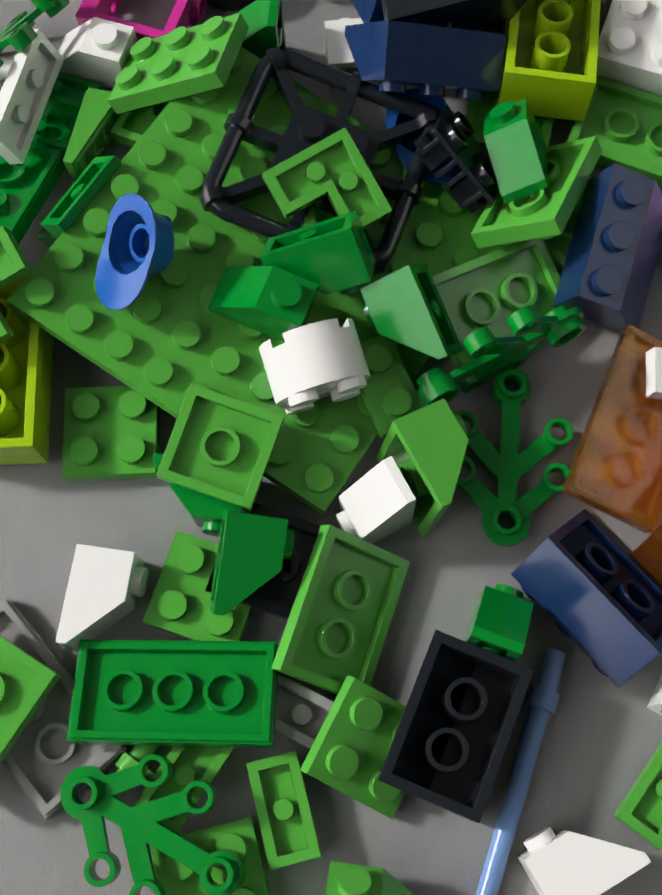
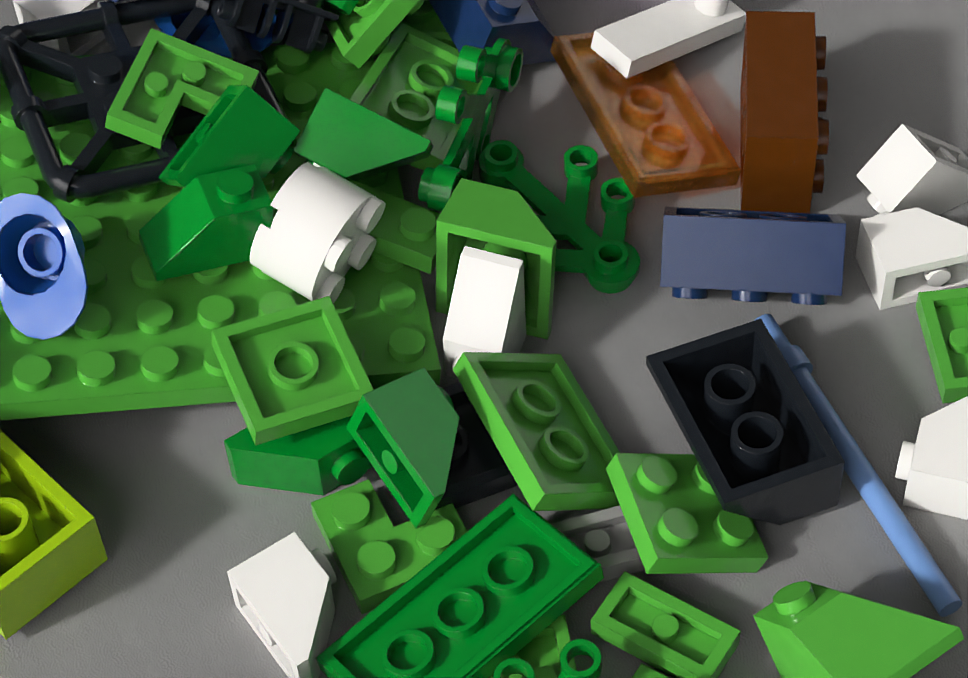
camera: 45 degrees left, 20 degrees down
(109, 434) = (149, 483): bright green plate -> none
(501, 621) = (692, 315): green slope -> none

